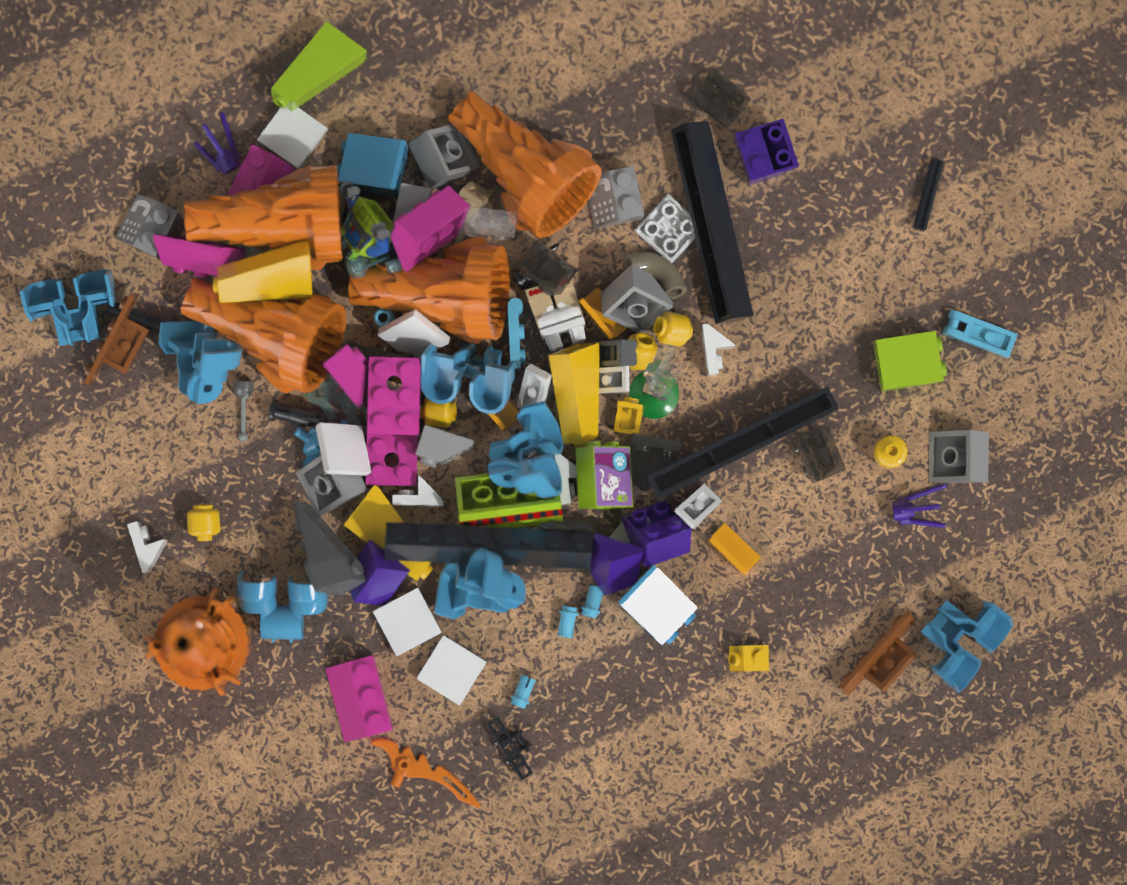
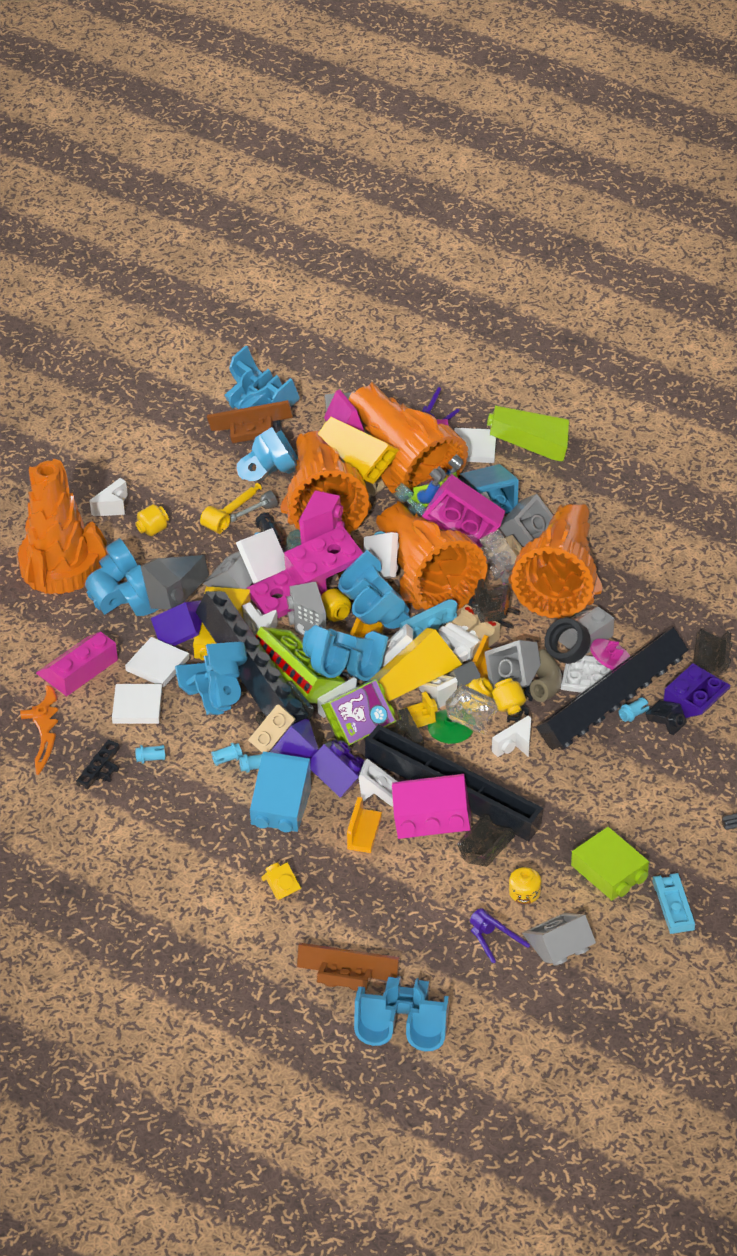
camera: 60 degrees right, 40 degrees down
(240, 455) = (219, 519): none -> yellow piece
(592, 580) = (272, 729): none -> tan bracket
(640, 247) = (556, 630): none -> black tyre
(664, 194) = (608, 652): none -> dark pink piece
(742, 218) = (630, 711): none -> medium azure pin
(765, 484) = (431, 806): none -> dark pink slope
(768, 193) = (669, 714): none -> black bracket

